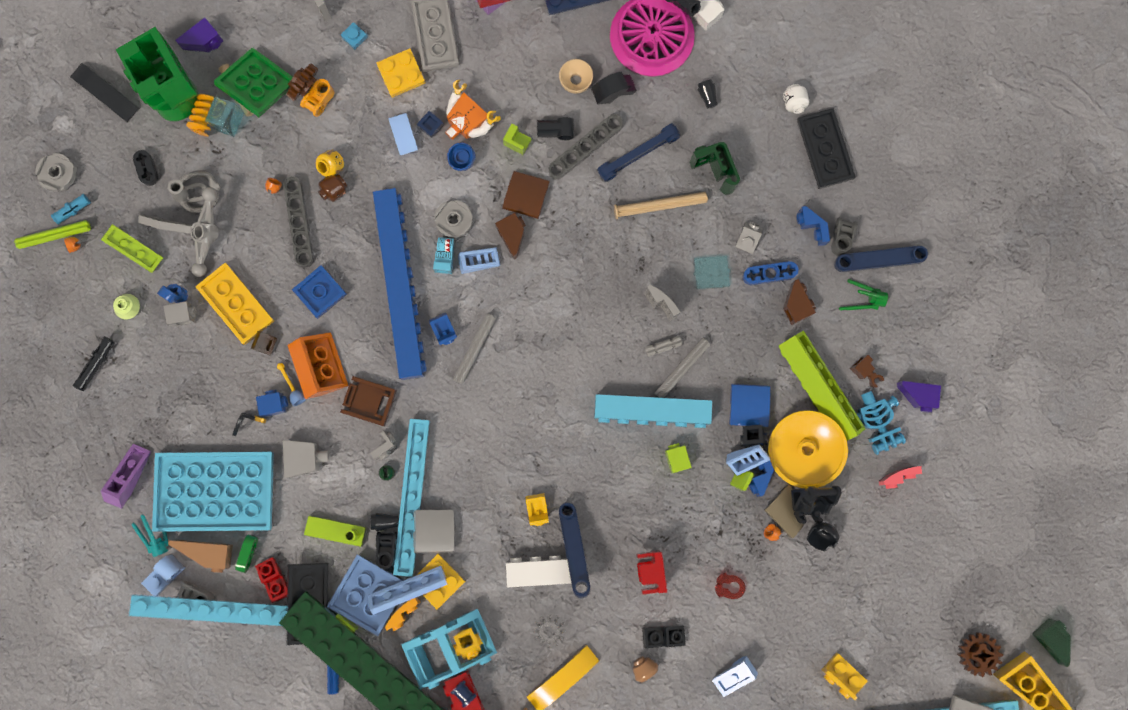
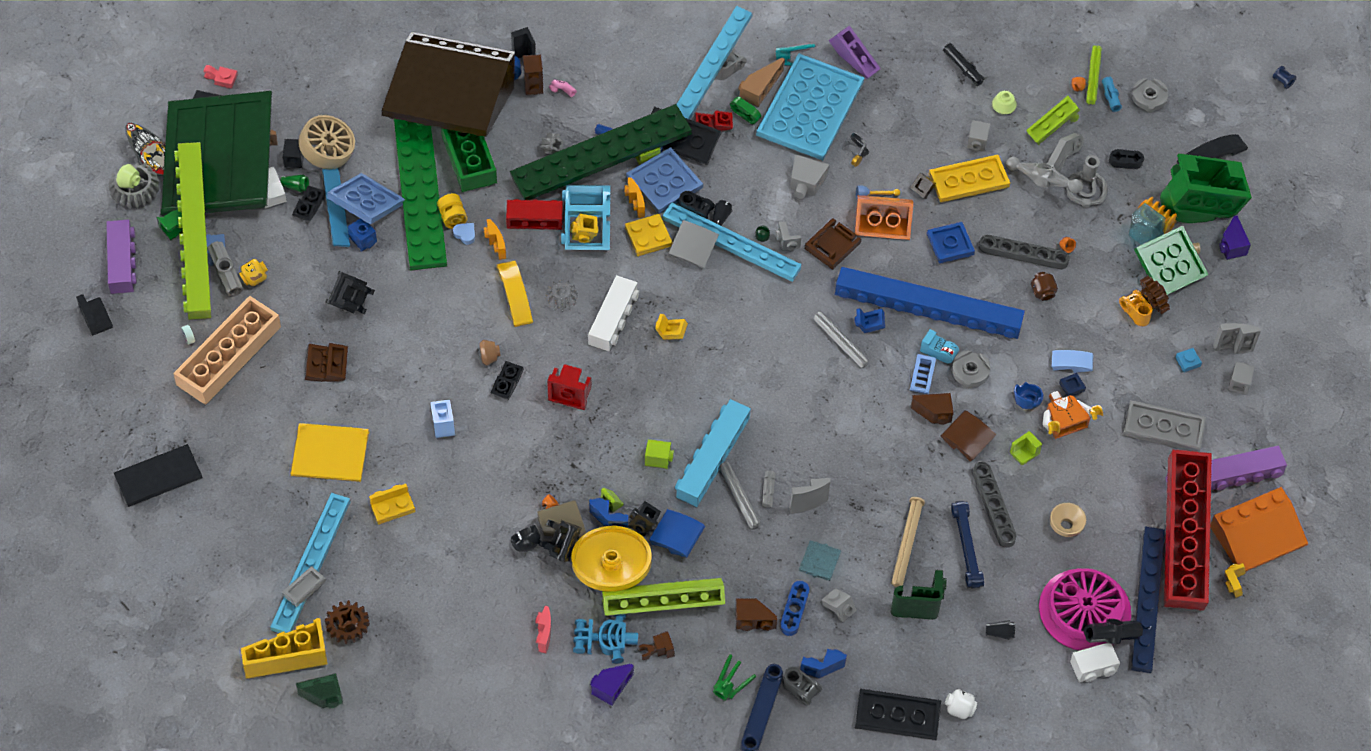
camera: 115 degrees right, 25 degrees down
(164, 573) = (759, 52): light blue plate -> none
(169, 294) = (998, 134): blue connector -> none
(271, 403) = (866, 171): blue brick -> none
(329, 163) = (1067, 290): yellow head -> none
(335, 531) = (729, 180): lime piece -> none
(400, 72) = (1135, 383): yellow plate -> none
(407, 590) = (653, 203): light blue plate -> none
(463, 694) = (545, 206): dark blue bush -> none
(561, 128) = (1021, 487): black piece -> none
(574, 550) = (621, 335): dark blue piece -> none
(612, 87) = (1042, 548): black brick -> none
(724, 578) = (522, 440): clear red piece -> none
(739, 468) = (628, 500): light blue slope -> none

